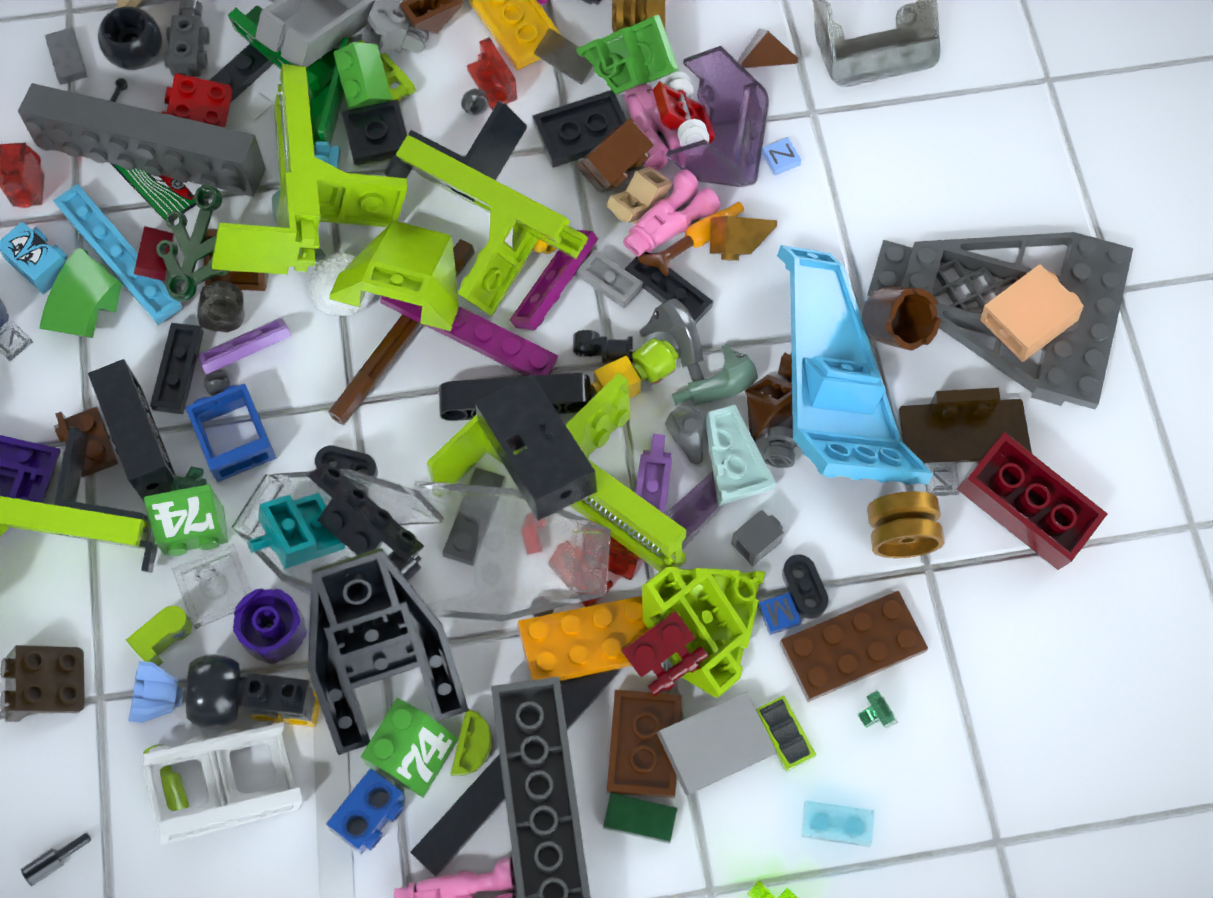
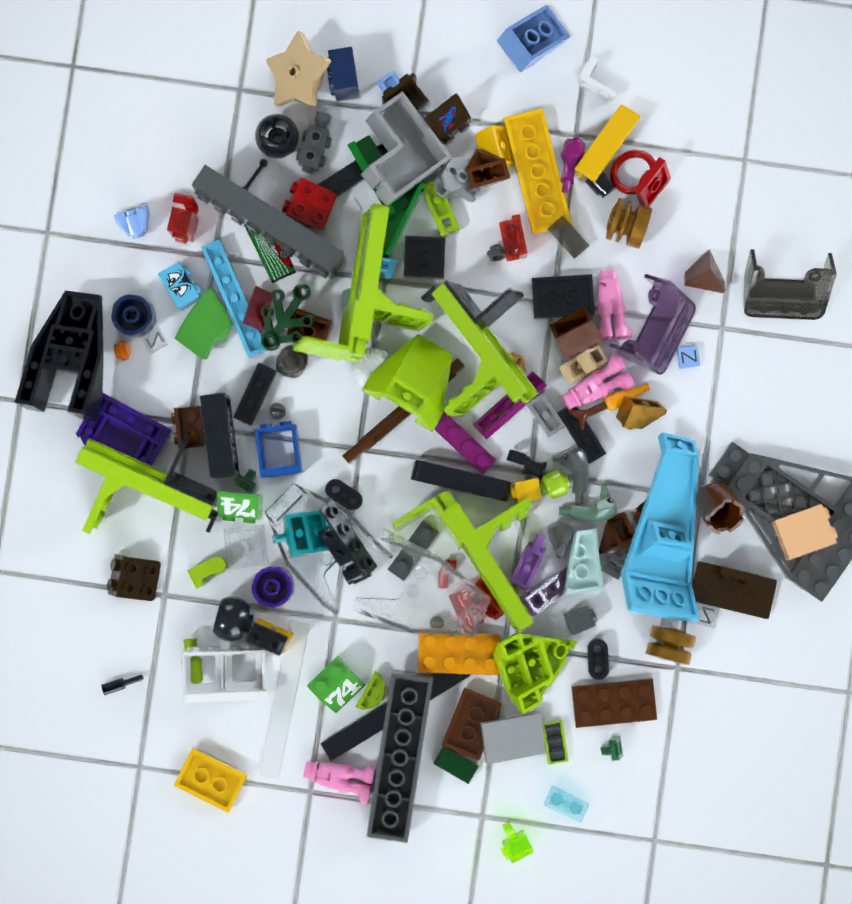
camera: 20 degrees right, 20 degrees up
(66, 56) = (230, 129): flat silver tile -> none
(153, 693) = (196, 607): light blue brick -> none
(244, 345) = (300, 392): medium lavender tile -> none
(359, 806) = (298, 710): blue brick -> none
(362, 75) = (426, 216): bright green brick -> none
(369, 628) = (331, 627): black wedge -> none
(536, 447) = (460, 539): black brick -> none
(632, 55) = (611, 257): bright green slope -> none
(660, 643) = (498, 673): dark red plate -> none
(682, 112) = (632, 312): plate -> none
(779, 613) = (576, 669): blue tile -> none
(1032, 501) = (754, 652): dark red brick -> none

